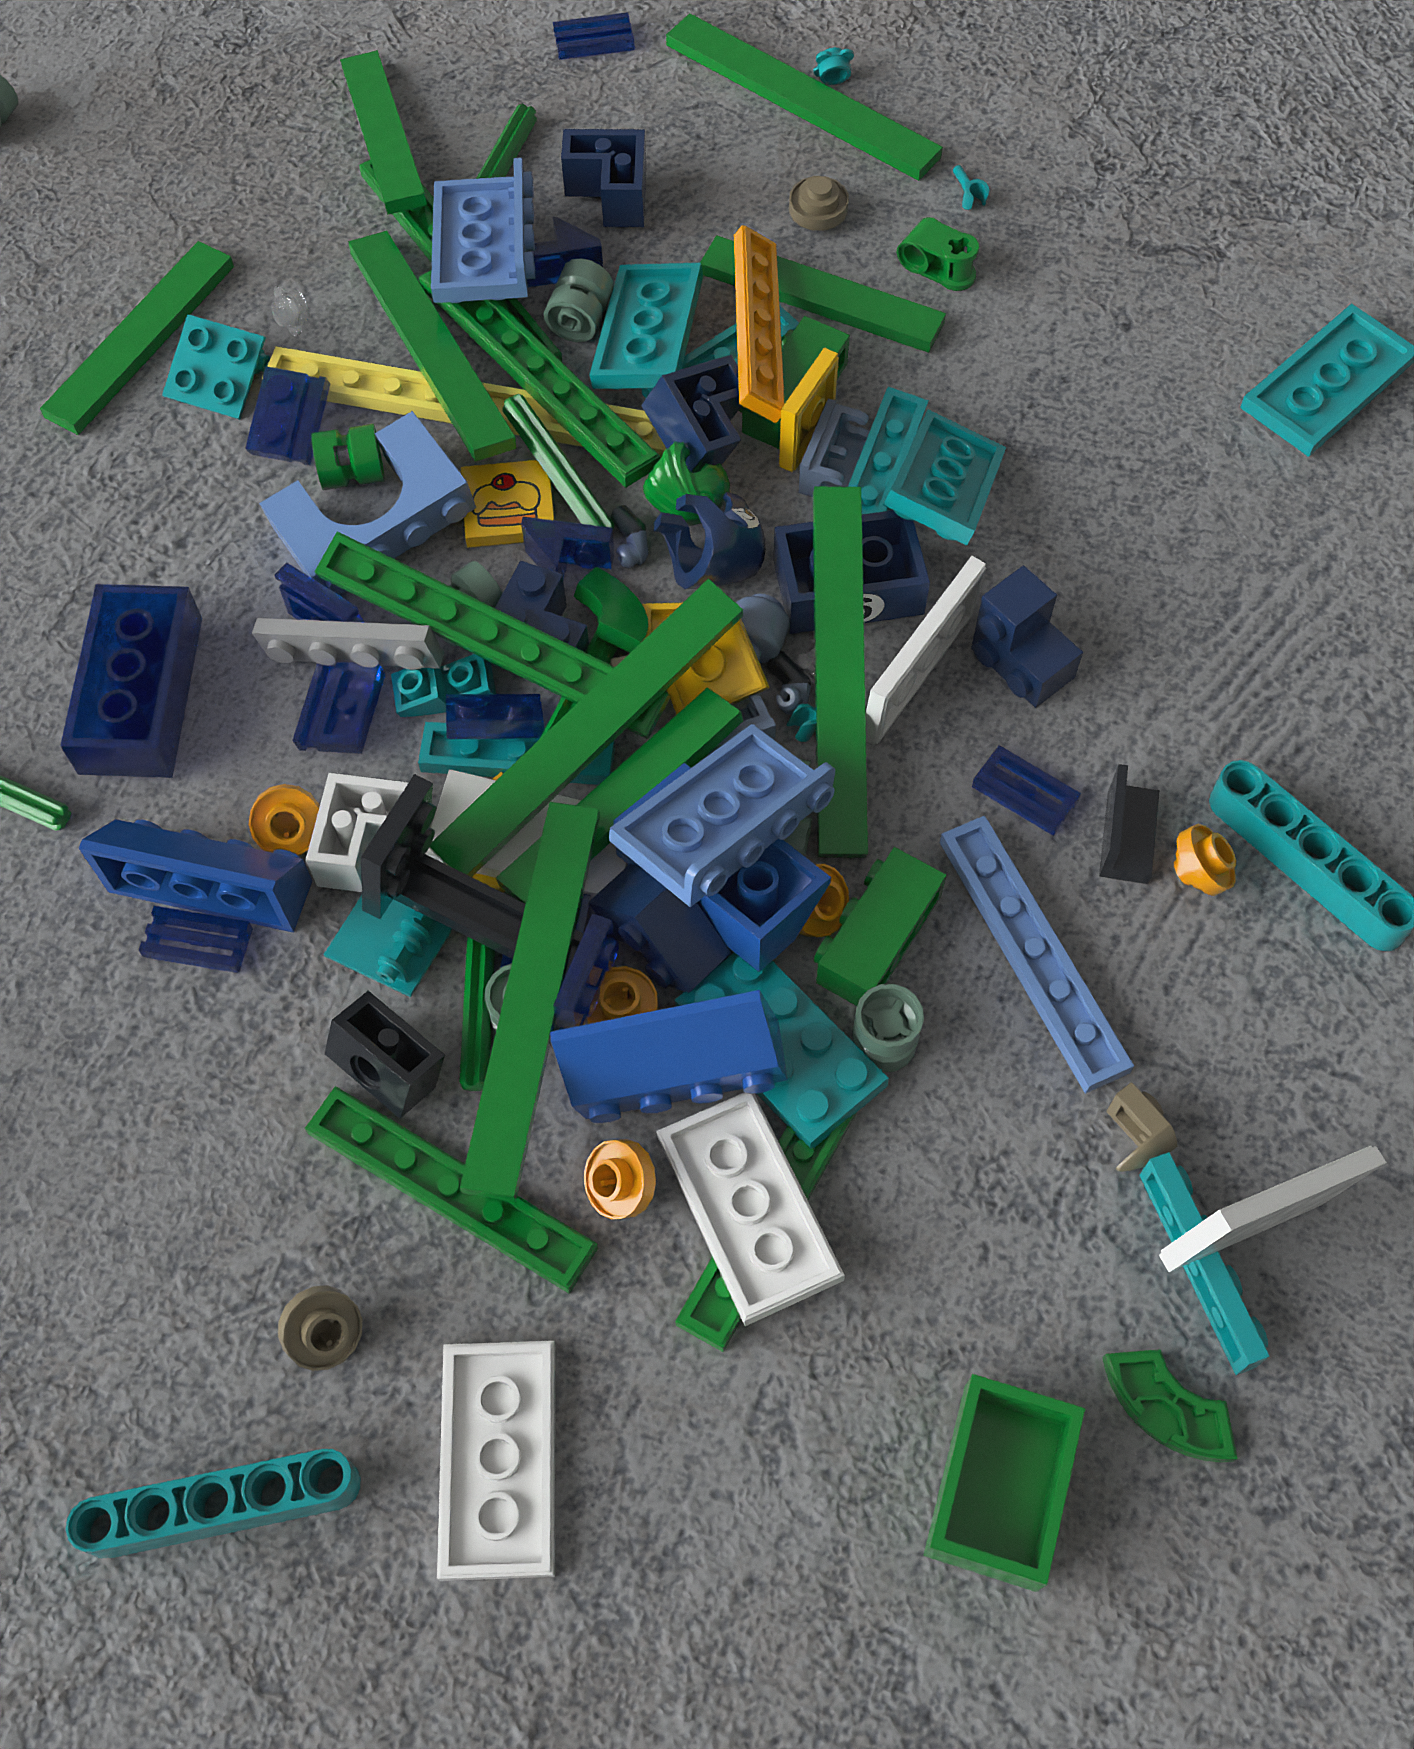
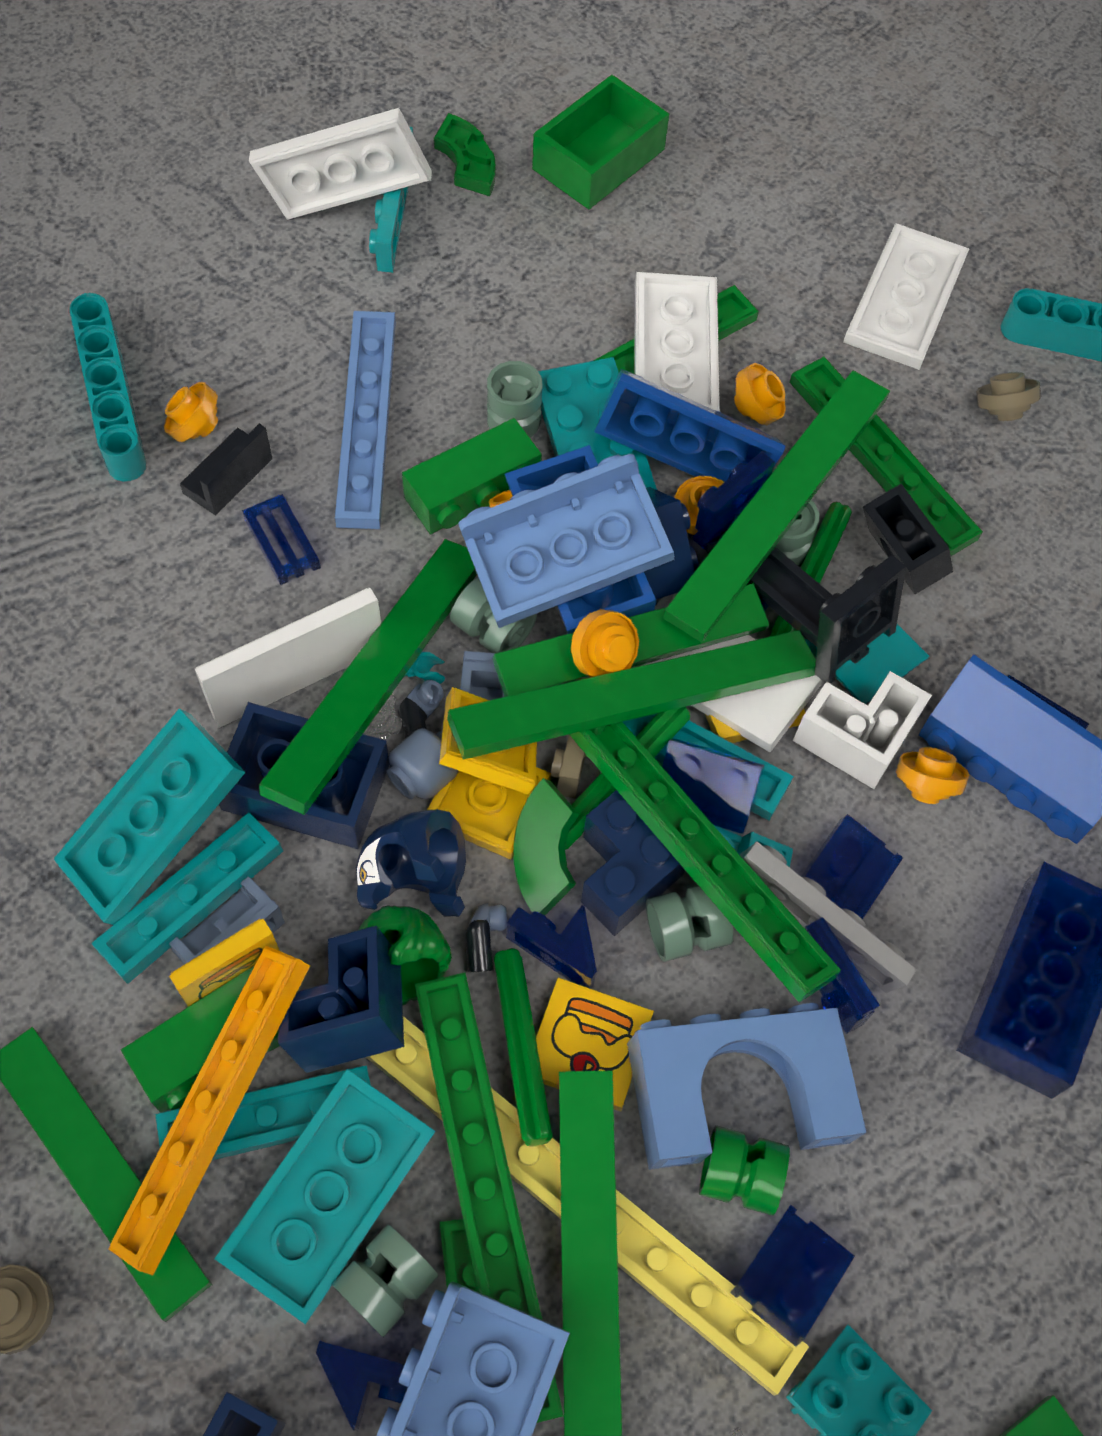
camera: 160 degrees left, 0 degrees up
(637, 746) = (604, 643): none -> light orange plate
(1019, 640) = (192, 632): dark blue brick -> none
(1144, 1123) = (377, 270): dark tan plate -> none

